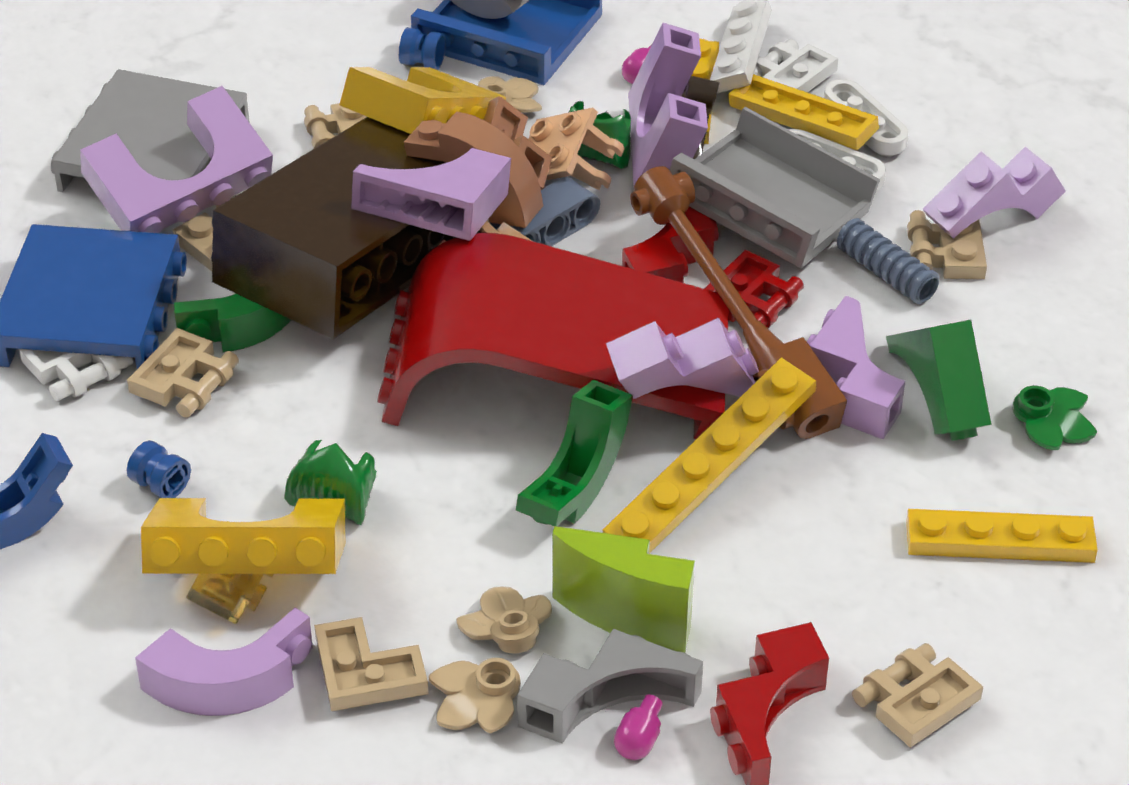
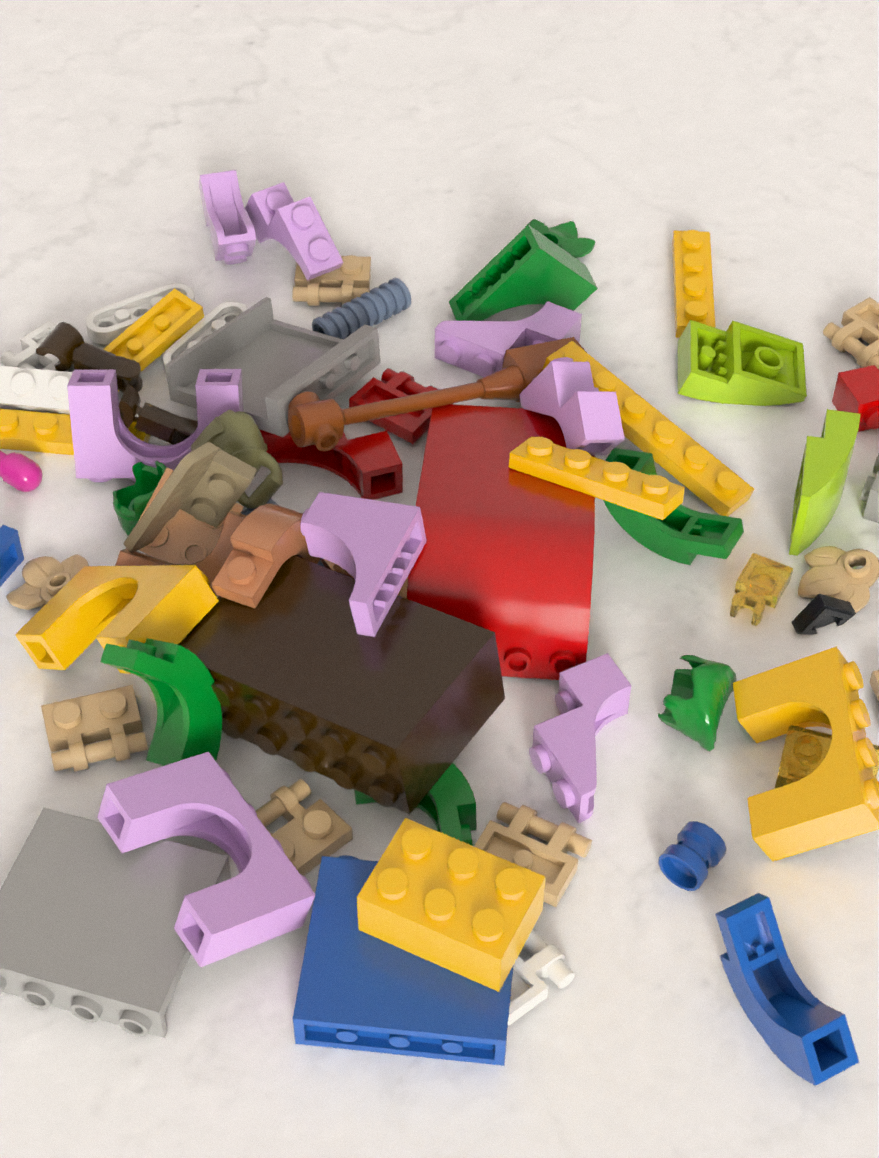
camera: 90 degrees left, 5 degrees up
(99, 286) = (451, 903): none -> yellow brick
(291, 398) = (566, 744): none -> lavender arch
(330, 105) = (185, 702): none -> green arch
(448, 593) = (822, 612): none -> black tile
(492, 549) = (759, 585): none -> clear yellow plate
(528, 96) = (202, 484): none -> dark tan plate
(566, 368) = (597, 477): none -> yellow plate
(616, 146) = (241, 438): none -> olive piece
(773, 63) = (70, 349): none -> dark brown piece
(842, 557) = (740, 366): none -> lime slope
(1044, 138) = (225, 215): none -> lavender arch

